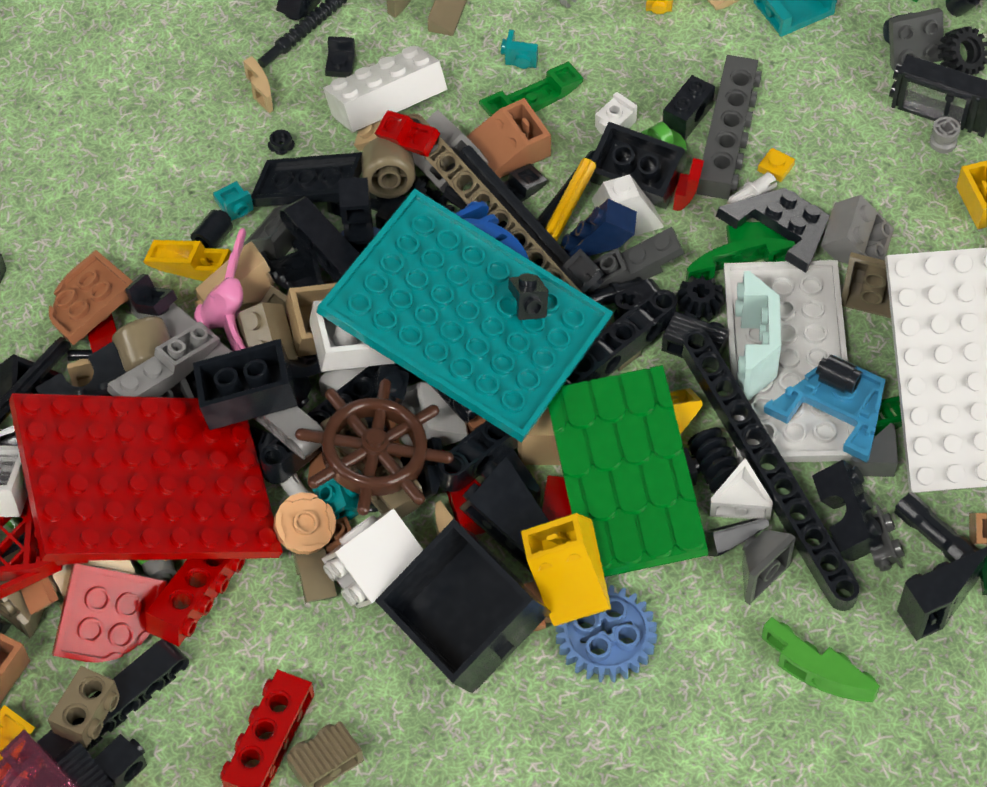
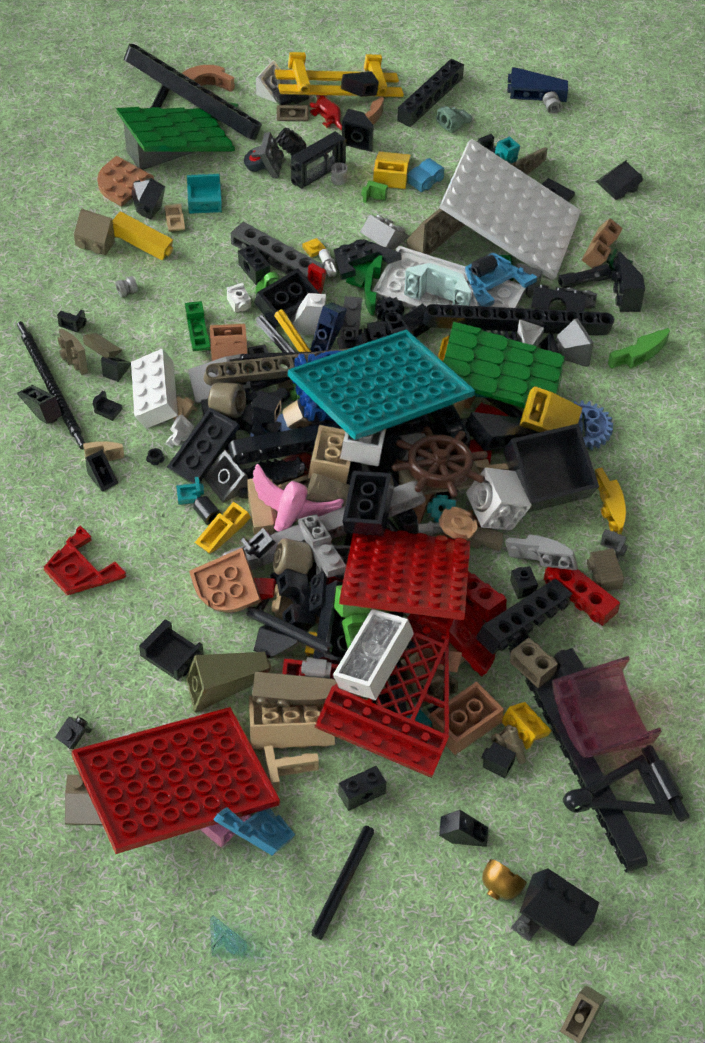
camera: 70 degrees left, 5 degrees down
(56, 131) = (74, 572): none -> red wing
(157, 651) = (524, 616): none -> black brick
(223, 95) = (100, 470): none -> black slope
(252, 652) = (523, 581): none -> black brick
(301, 655) = (546, 550): none -> light grey slope
(336, 145) = (181, 430): none -> white plate
(388, 750) = (616, 541): none -> dark grey bracket
(407, 133) = (221, 374): red slope -> none
(413, 33) = (114, 367): none -> black slope
(456, 731) = (613, 501): none -> yellow slope
(519, 53) = (161, 324): teal bracket -> none
(530, 296) = (385, 349): black bracket -> none
(938, 188) = (374, 190): none -> bright green bracket

